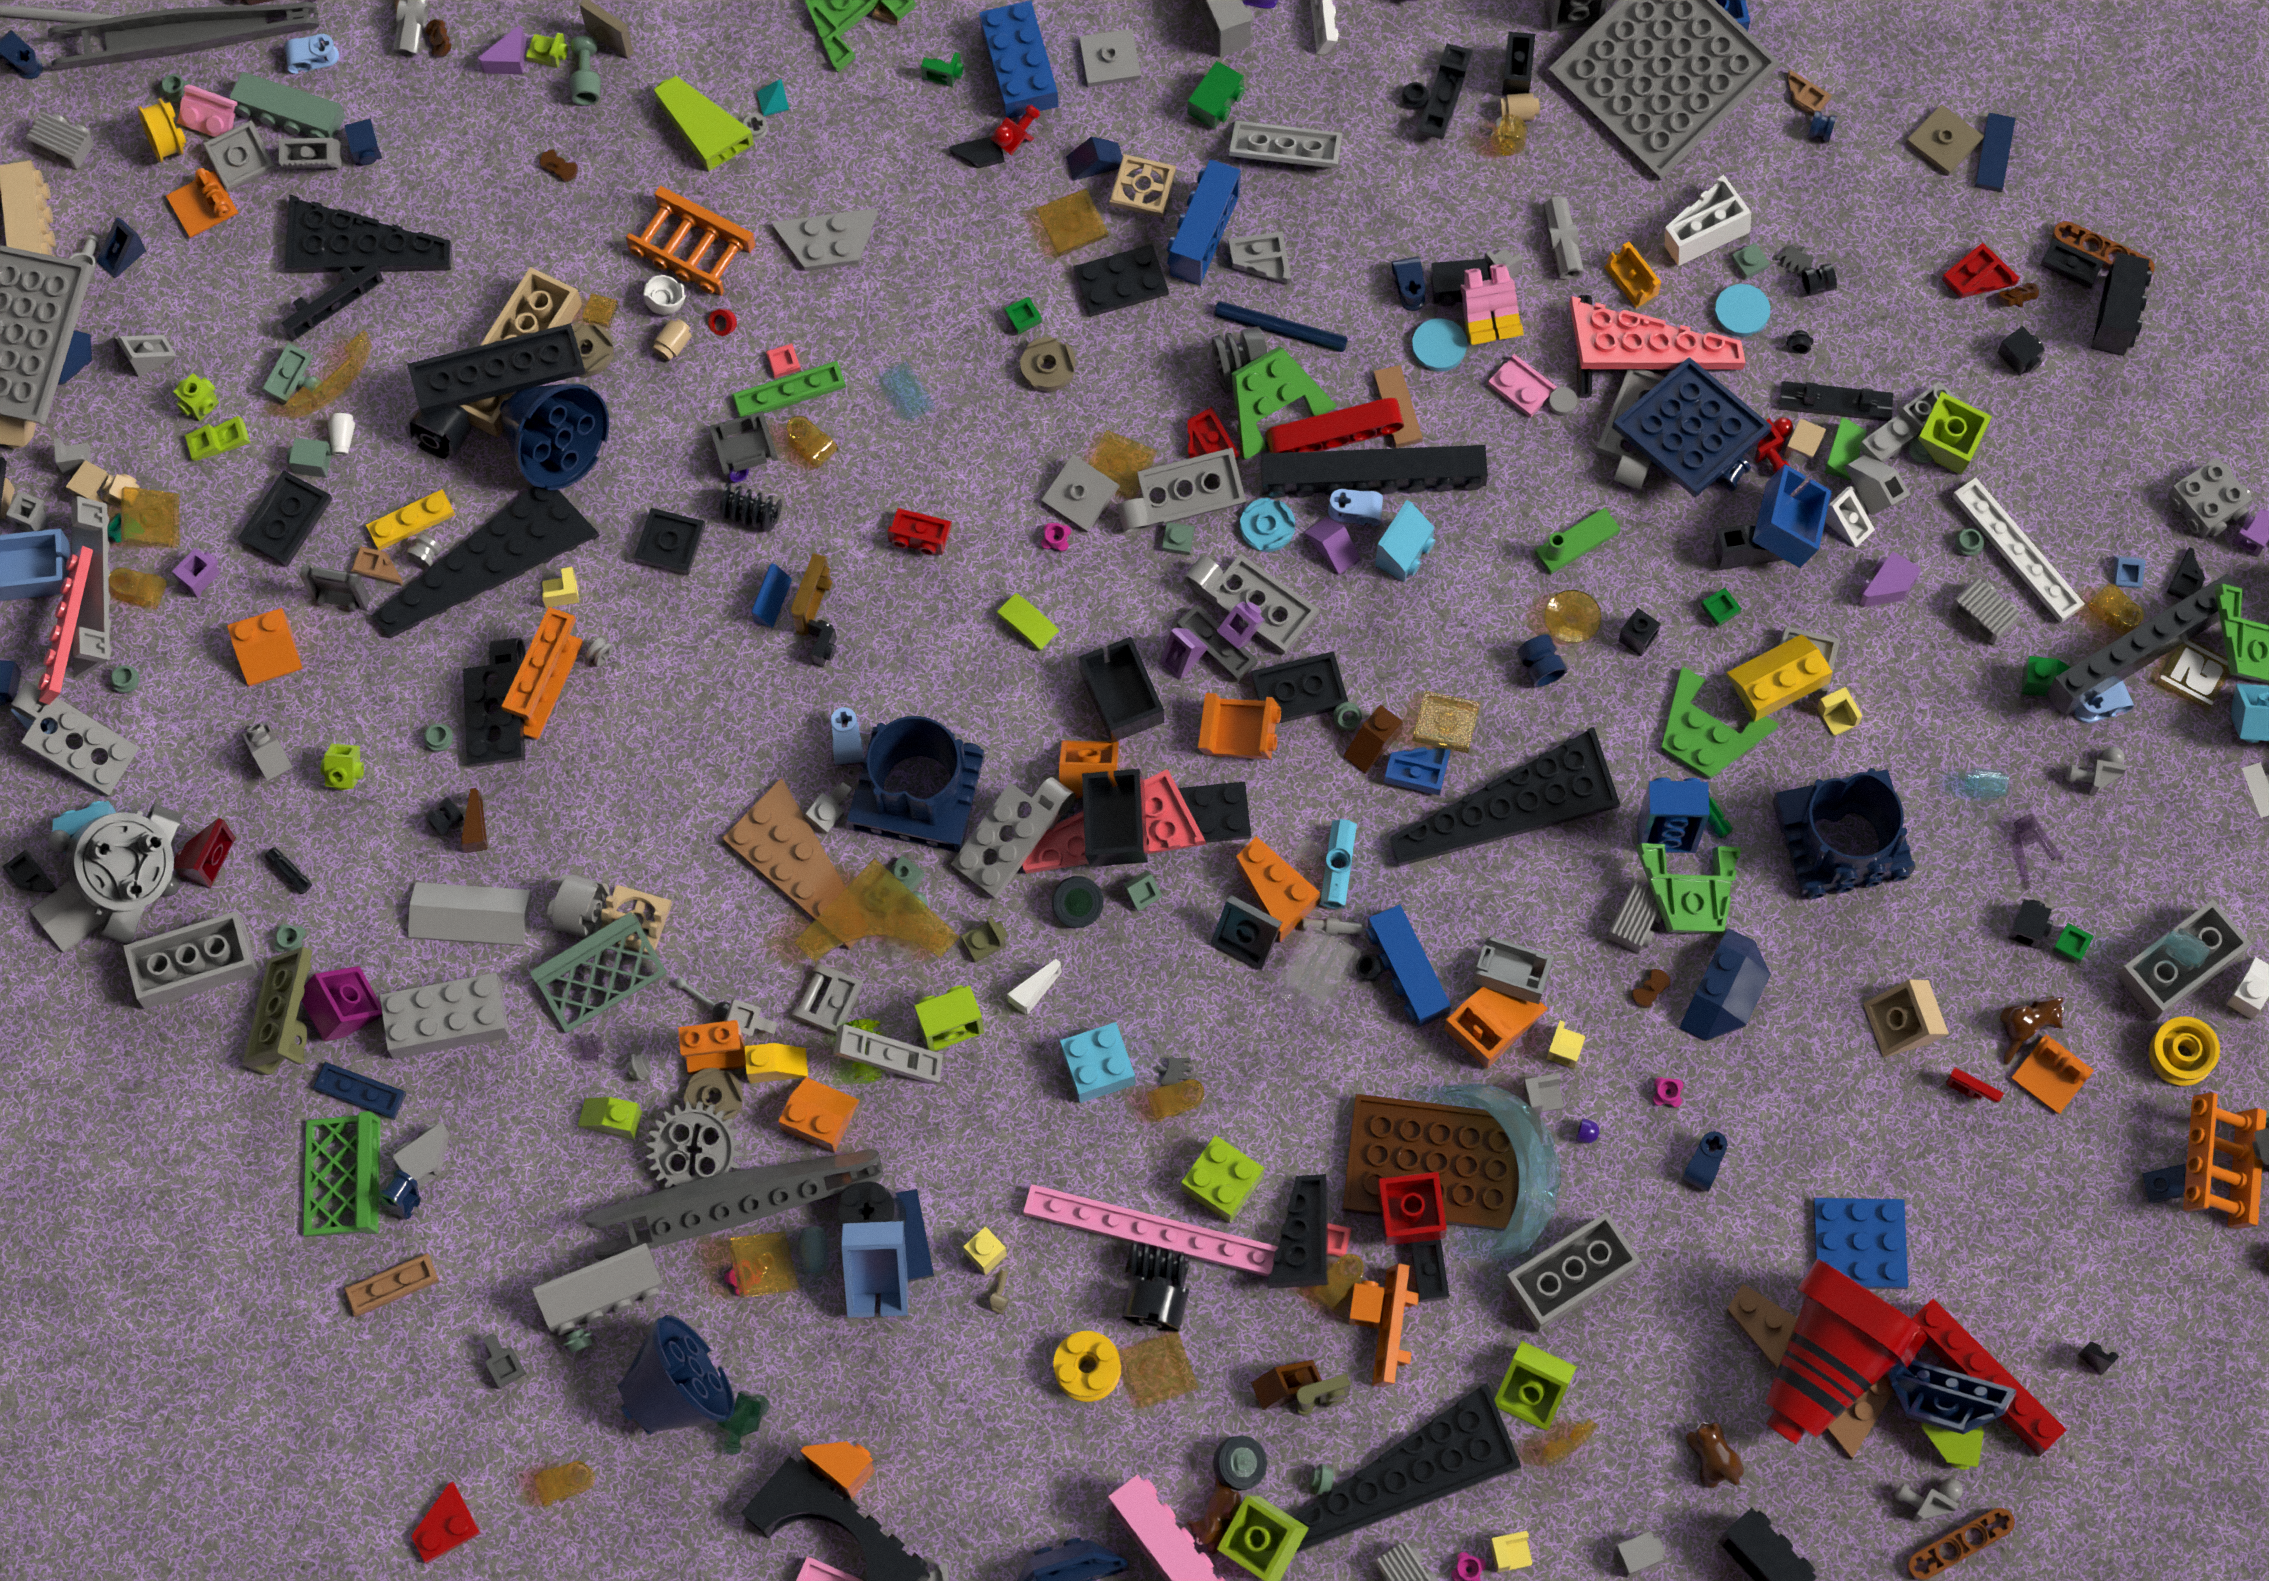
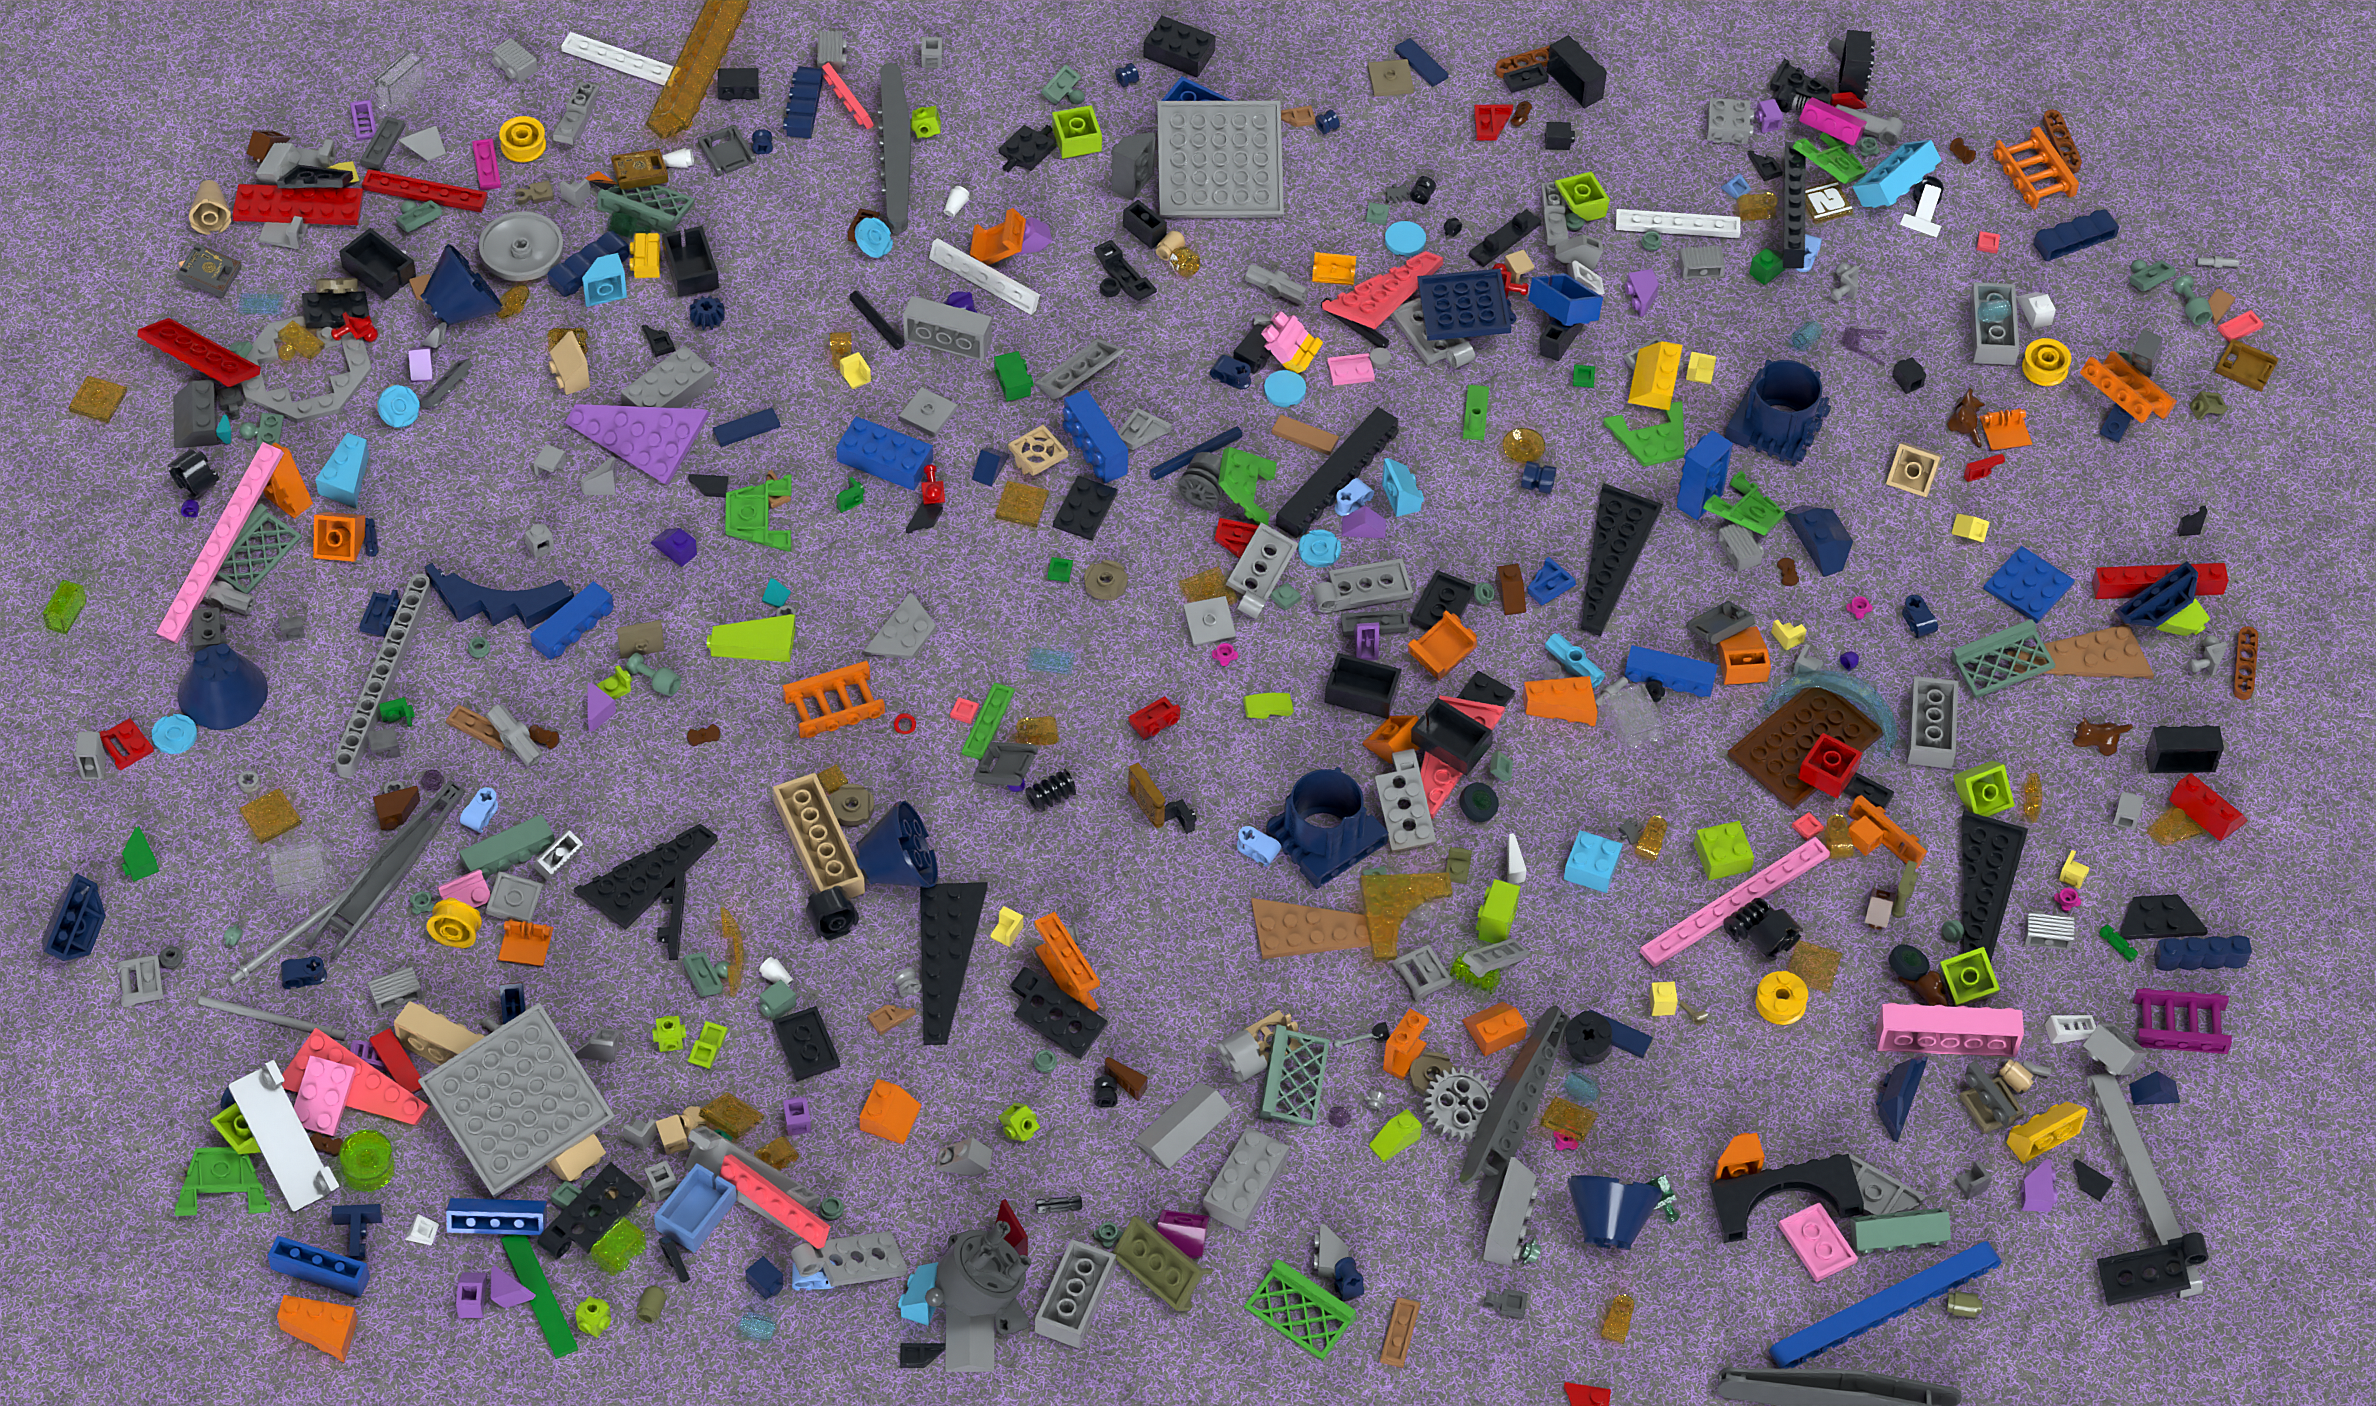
camera: 55 degrees left, 15 degrees down
(335, 587) = (892, 1040): dark grey container -> none
(359, 1090) = (1249, 1264): dark blue tile -> none
(363, 142) = (579, 823): dark blue brick -> none
(410, 519) = (875, 977): yellow plate -> none
(496, 369) = (833, 846): black plate -> none
(659, 290) = (858, 738): white hair -> none
(669, 541) = (1031, 849): black plate -> none
(672, 339) = (892, 755): tan brick -> none
(749, 1018) = (1394, 1016): light grey plate -> none
(771, 596) = (1121, 823): blue slope -> none
(775, 1062) = (1440, 1027): yellow slope -> none
(825, 809) = (1294, 889): light grey plate -> none
(875, 1264) = (1632, 1051): medium blue piece -> none
(1233, 627) = (1385, 603): medium lavender brick -> none
(1246, 932) = (1579, 730): black plate -> none
(1304, 1237) = (1799, 834): black wing -> none
(1337, 428) = (1293, 470): red beam -> none
(1446, 721) = (1532, 549): clear yellow plate -> none
(1639, 632) = (1564, 421): black brick -> none
(1708, 223) = (1339, 210): white wedge -> none
(1736, 1263) = (1998, 642): none -> sand green fence
(1836, 1352) = (2094, 619): red cone -> none
(1844, 448) = (1539, 255): bright green slope -> none
(1878, 1130) = (1970, 527): none -> light yellow panel
(2073, 943) = (1937, 366): green plate -> none

